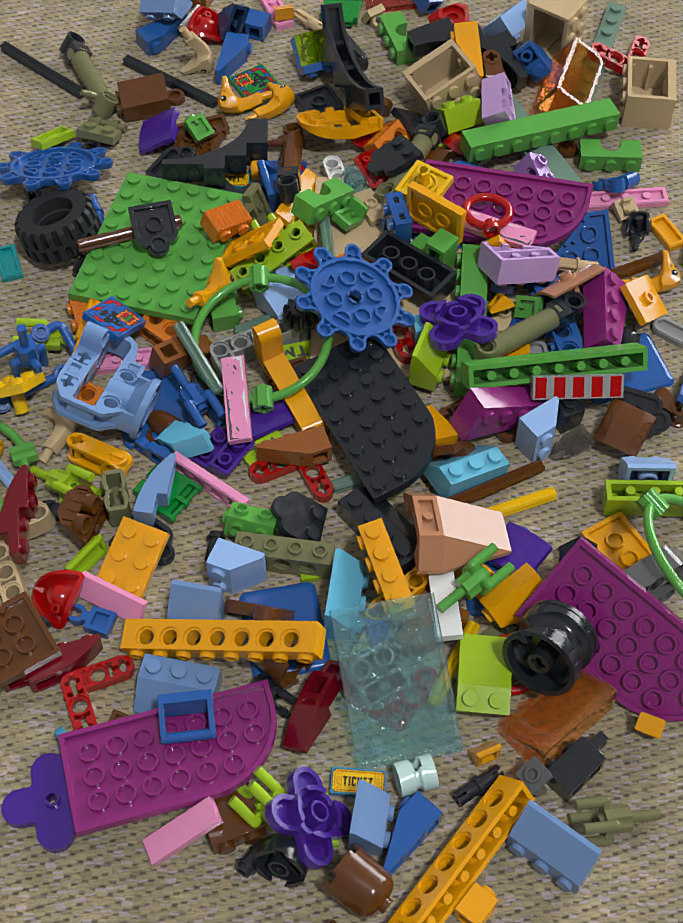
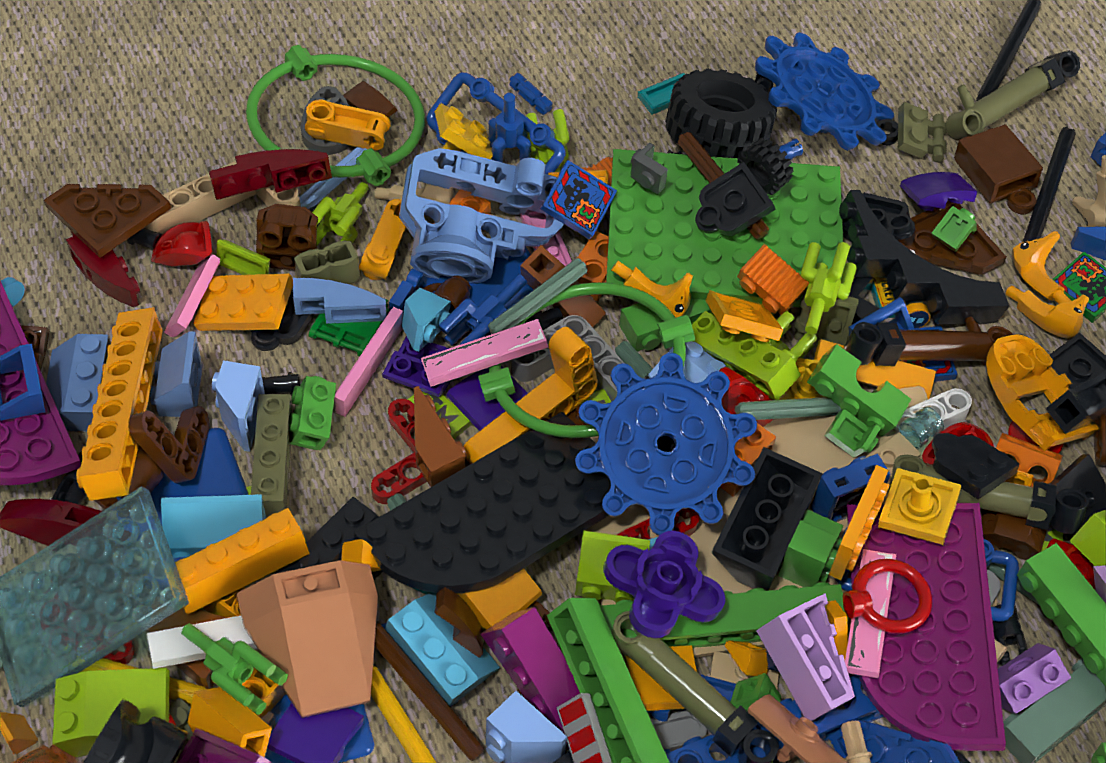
camera: 75 degrees right, 0 degrees up
(52, 137) = (885, 84): lime tile -> none
(87, 685) = (78, 298): red beam -> none
(95, 621) = (164, 289): blue plate -> none
(105, 270) = (648, 171): none -> dark grey bracket
(129, 191) = (767, 165): none -> black tyre
(242, 190) = (825, 283): none -> lime plant
(299, 516) = (326, 462): black plate -> none
(391, 501) = (359, 552): none -> light orange slope

